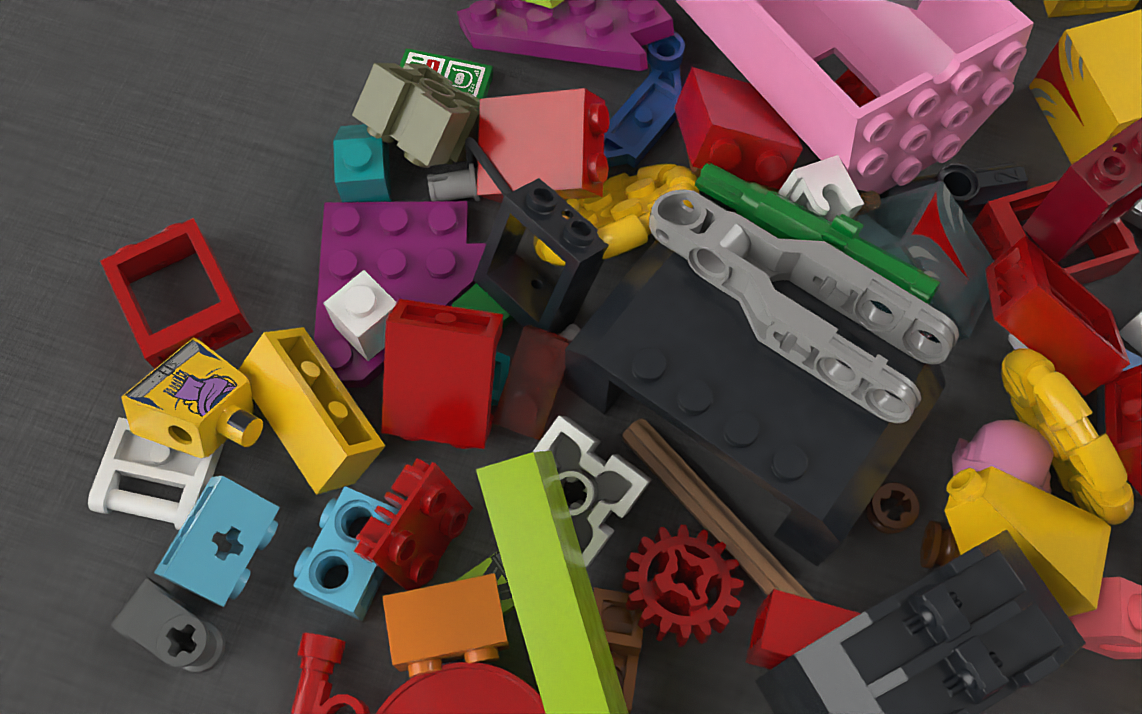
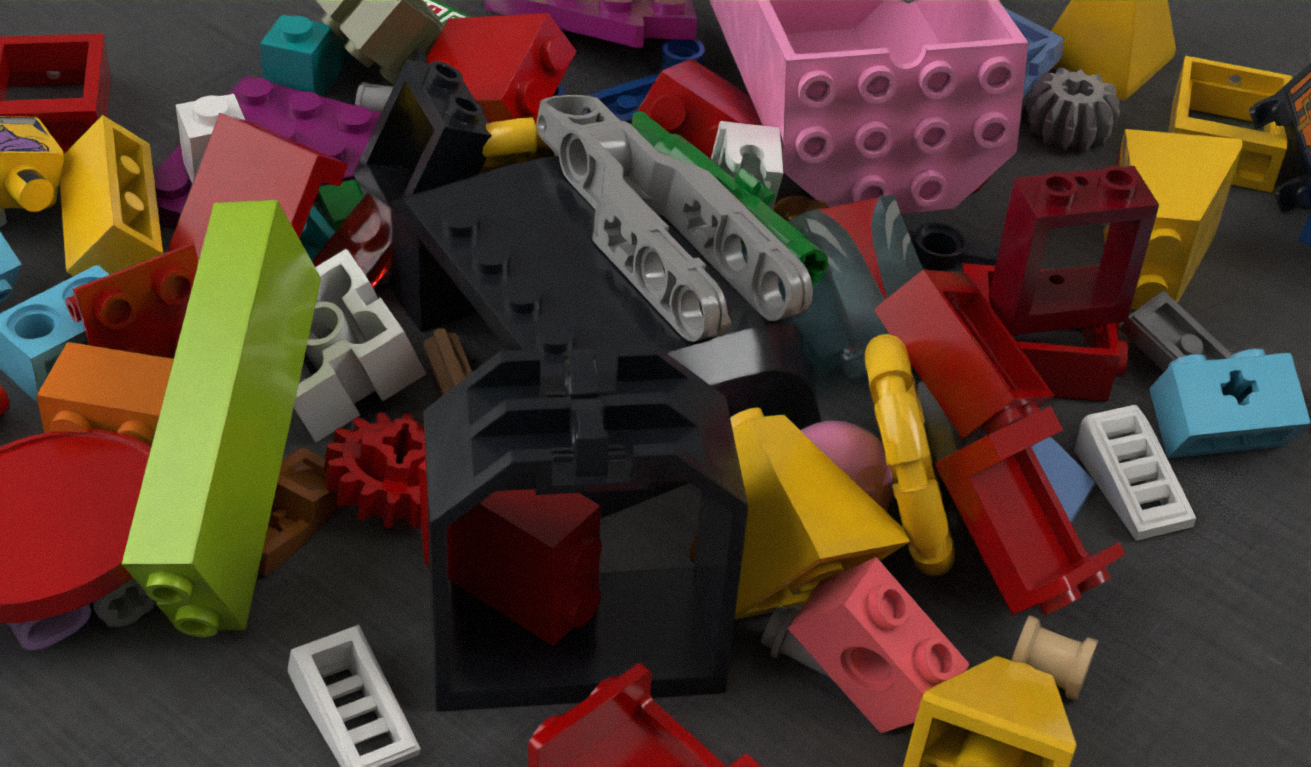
camera: 20 degrees right, 25 degrees down
(904, 496) = (678, 508): reddish brown bush -> none

